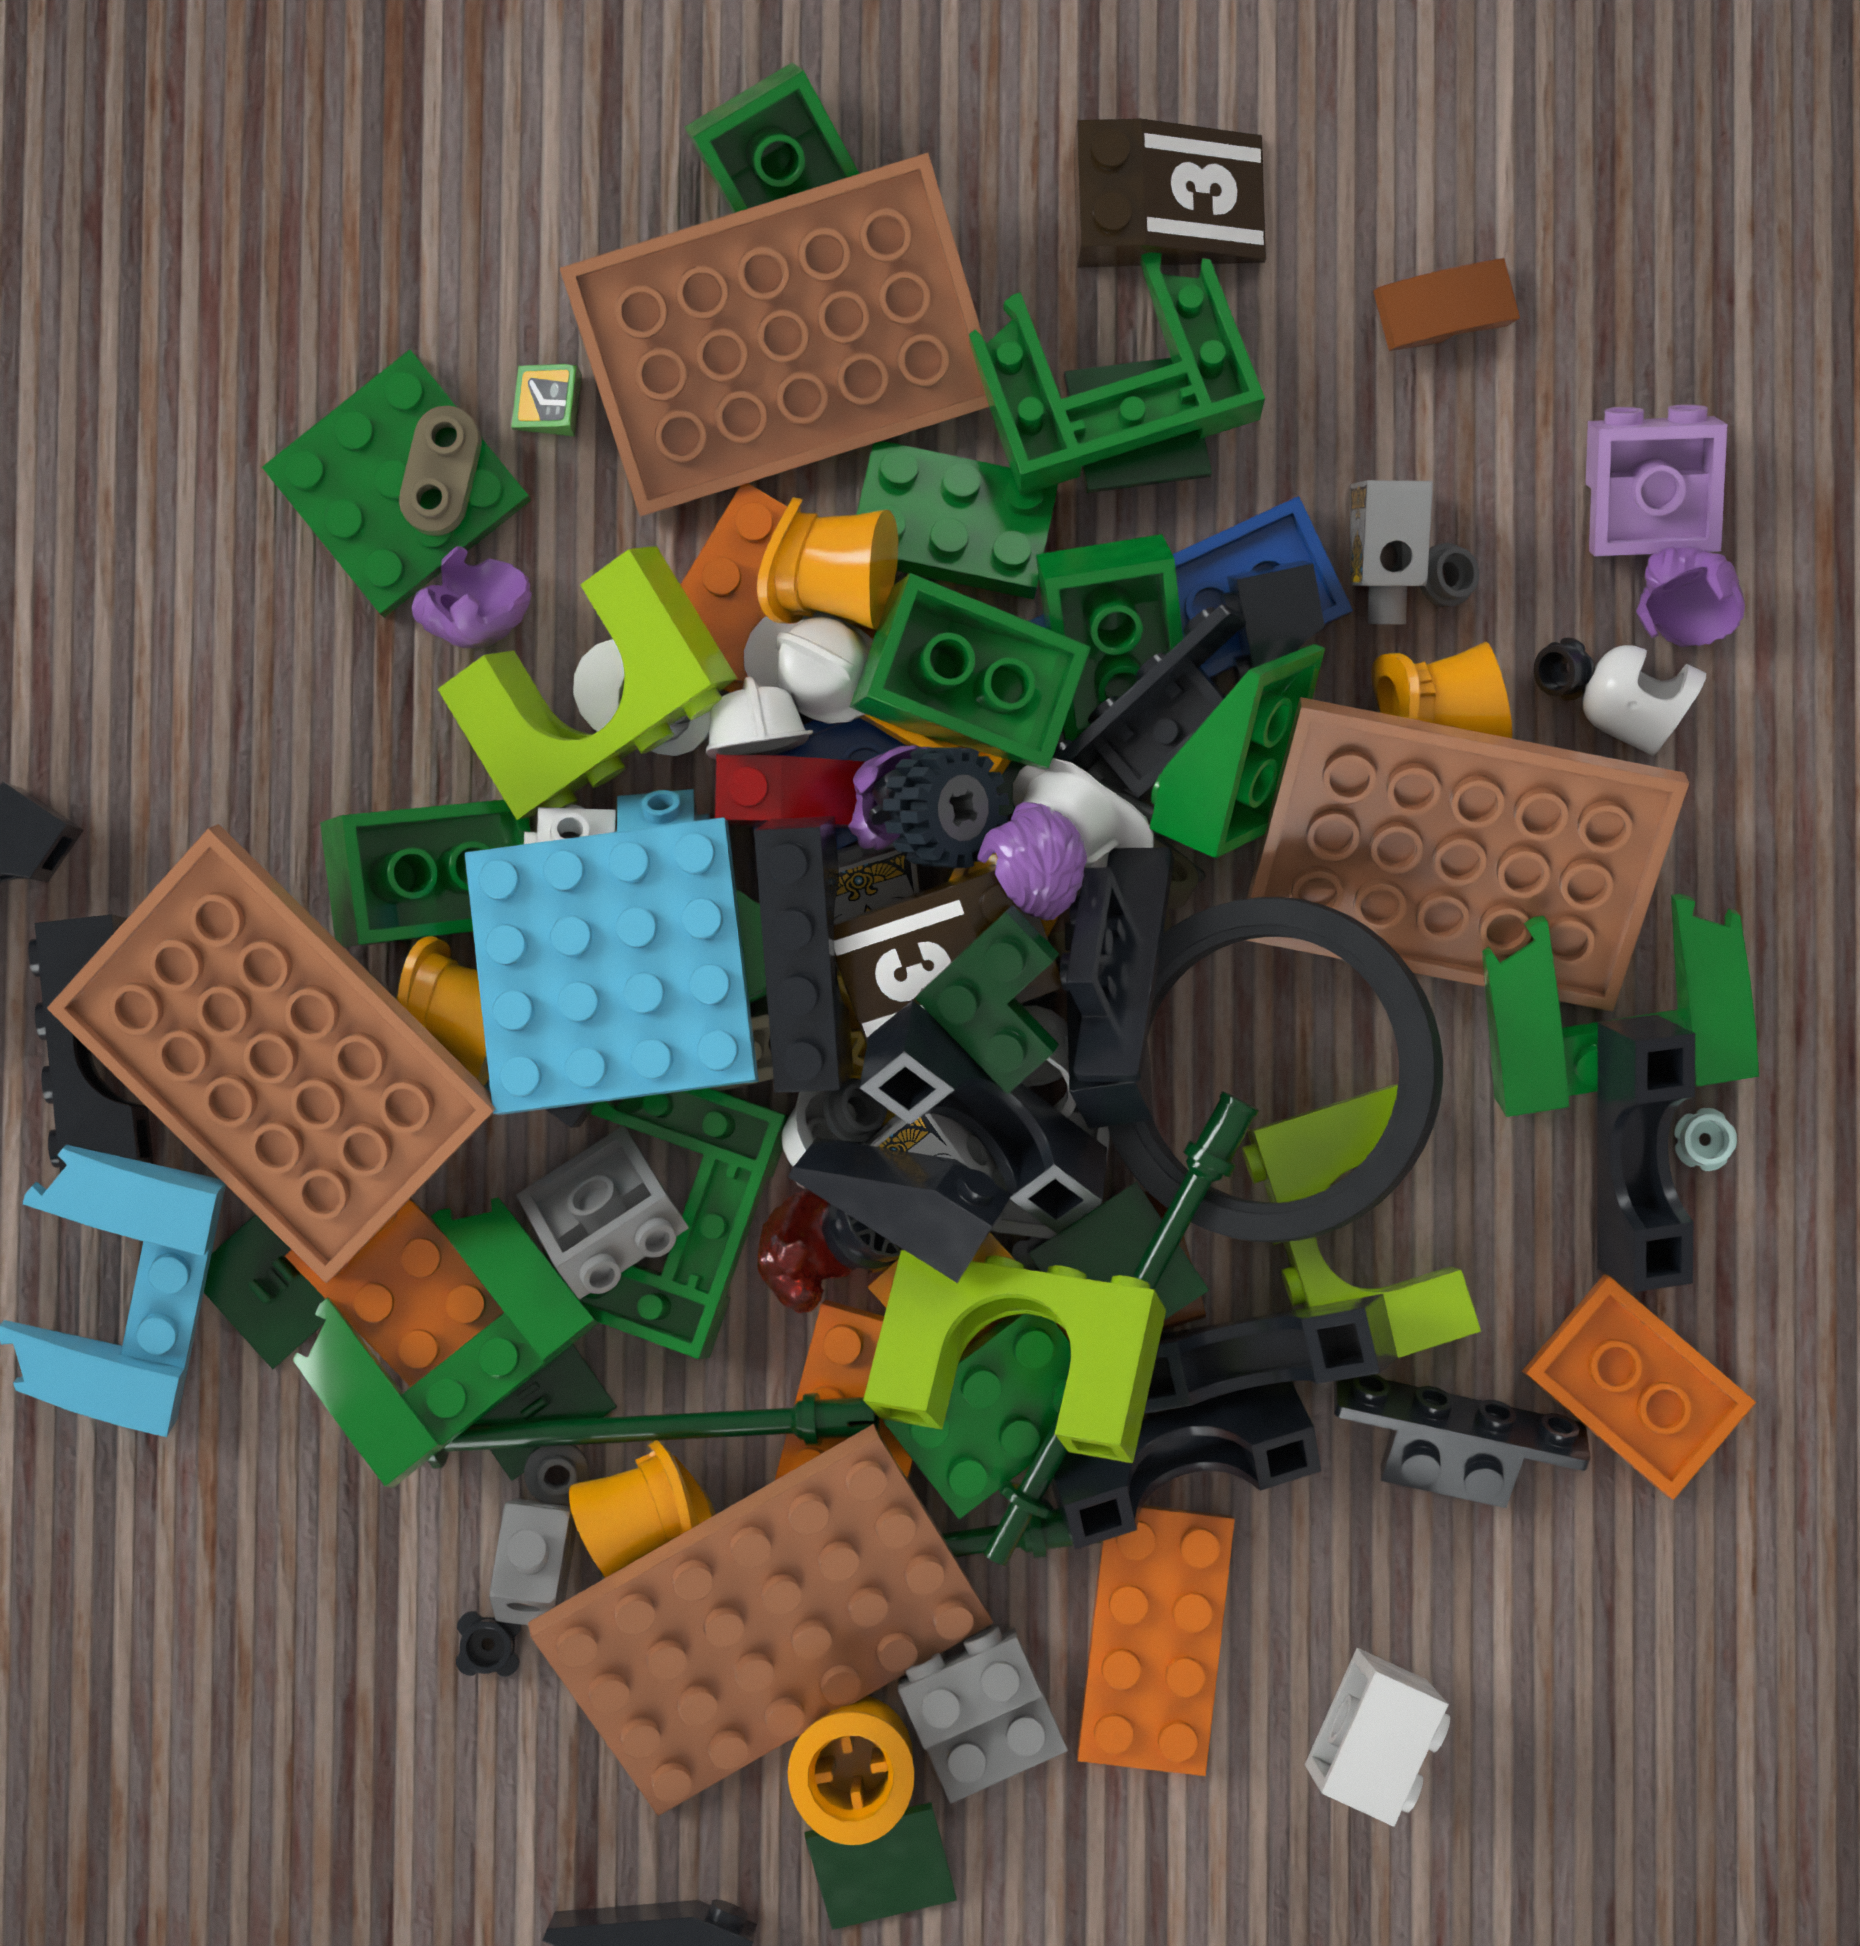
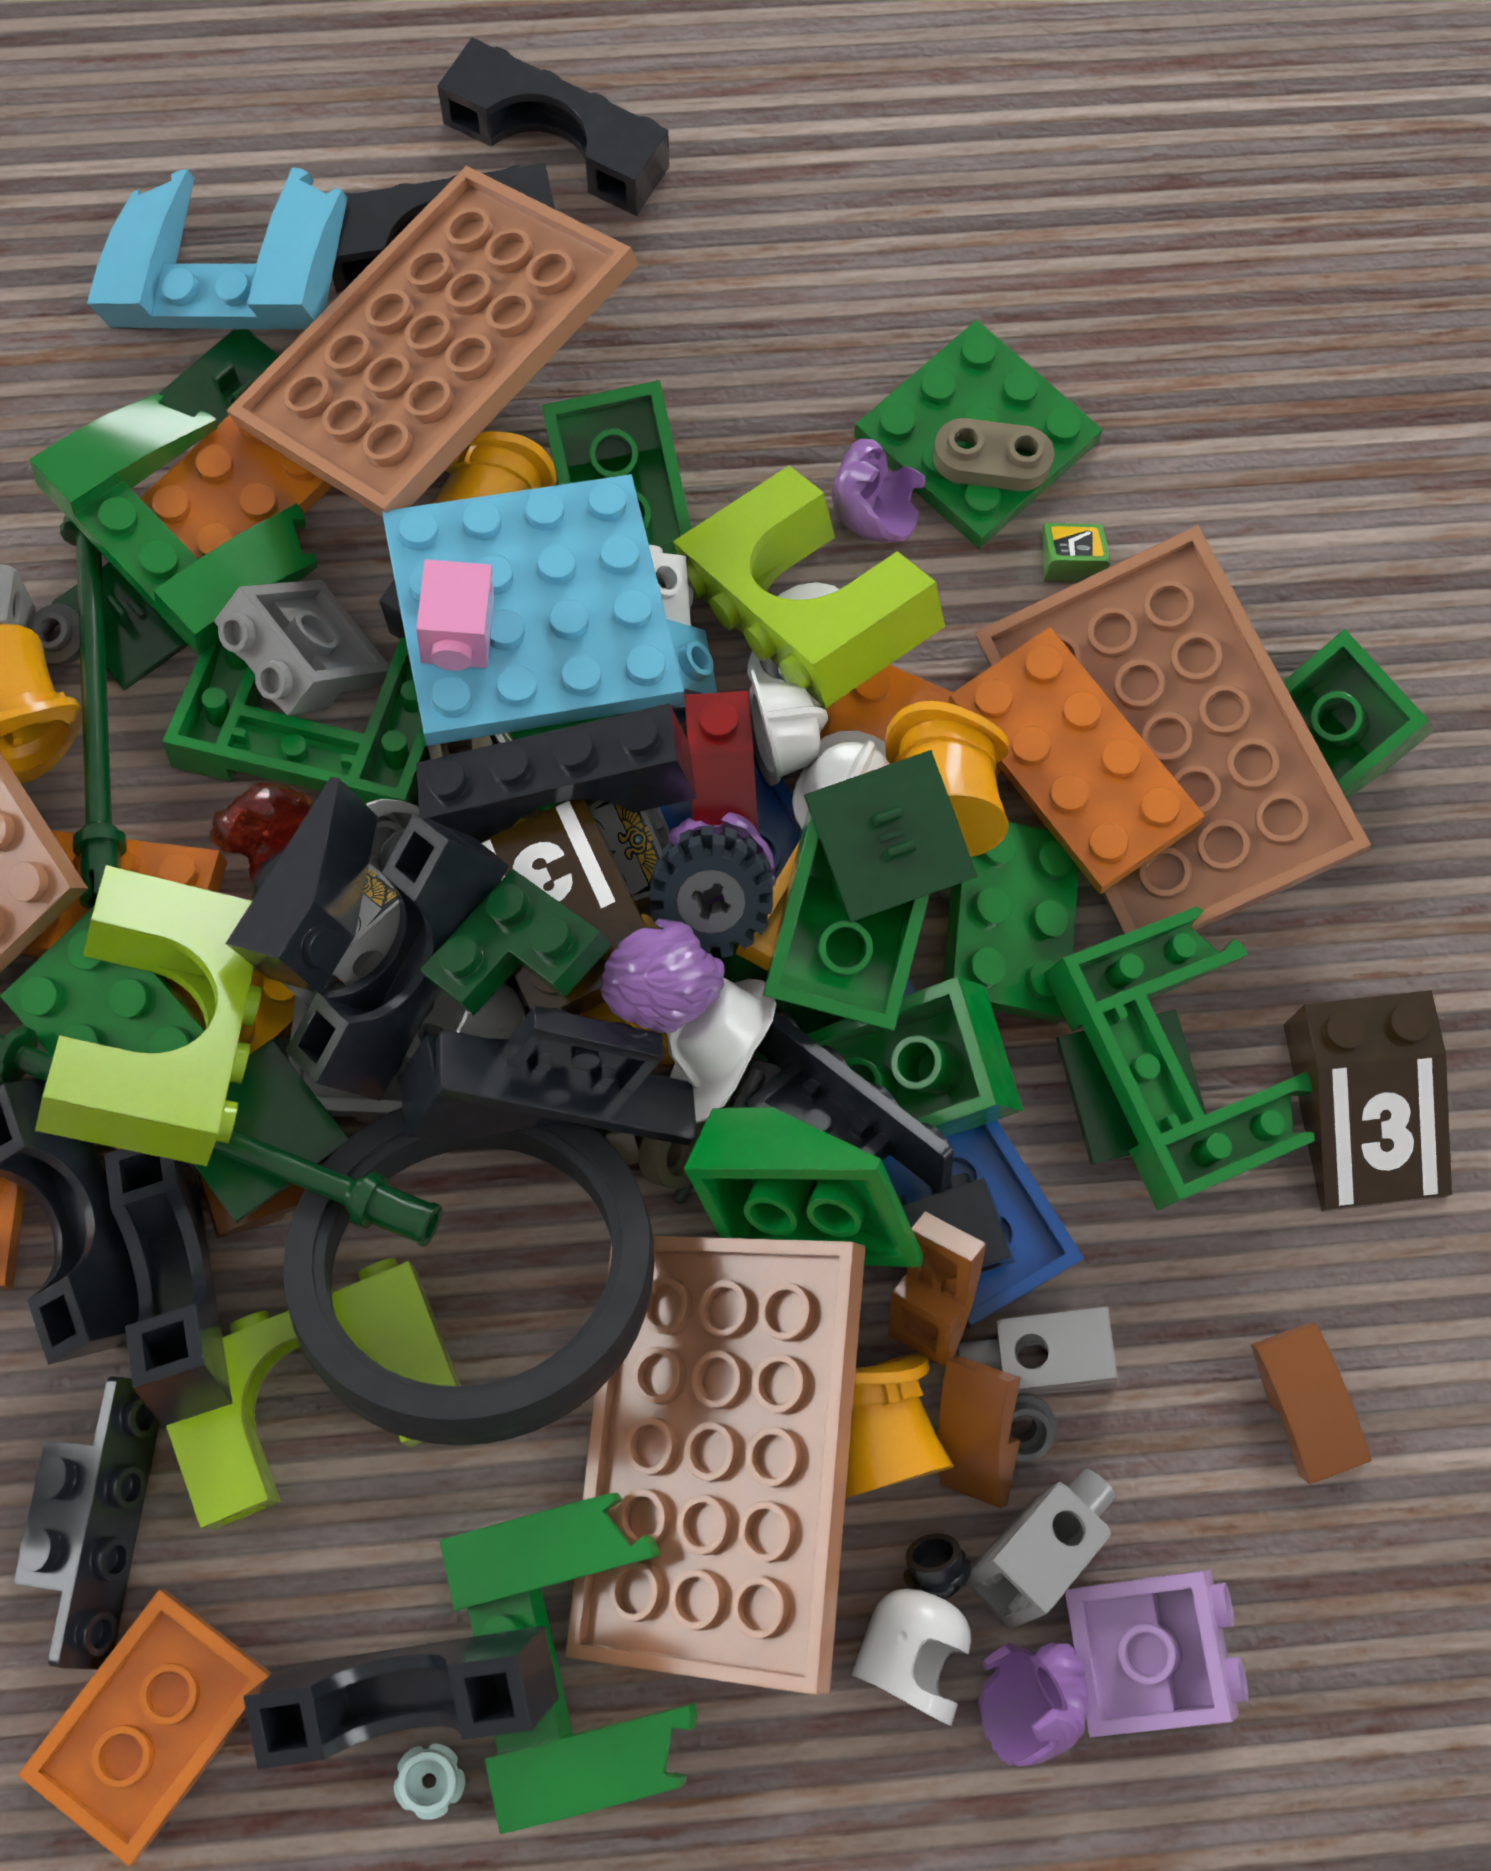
camera: 85 degrees right, 15 degrees down
(643, 1037) = (455, 614): none -> bright pink brick
(800, 432) = (1080, 761): none -> orange plate
(909, 626) = (890, 836): none -> dark green piece
(1350, 637) = (936, 1299): none -> dark orange slope
(1452, 614) = (976, 1429): none -> dark orange slope
(1562, 569) = (1043, 1549): none -> light grey torso

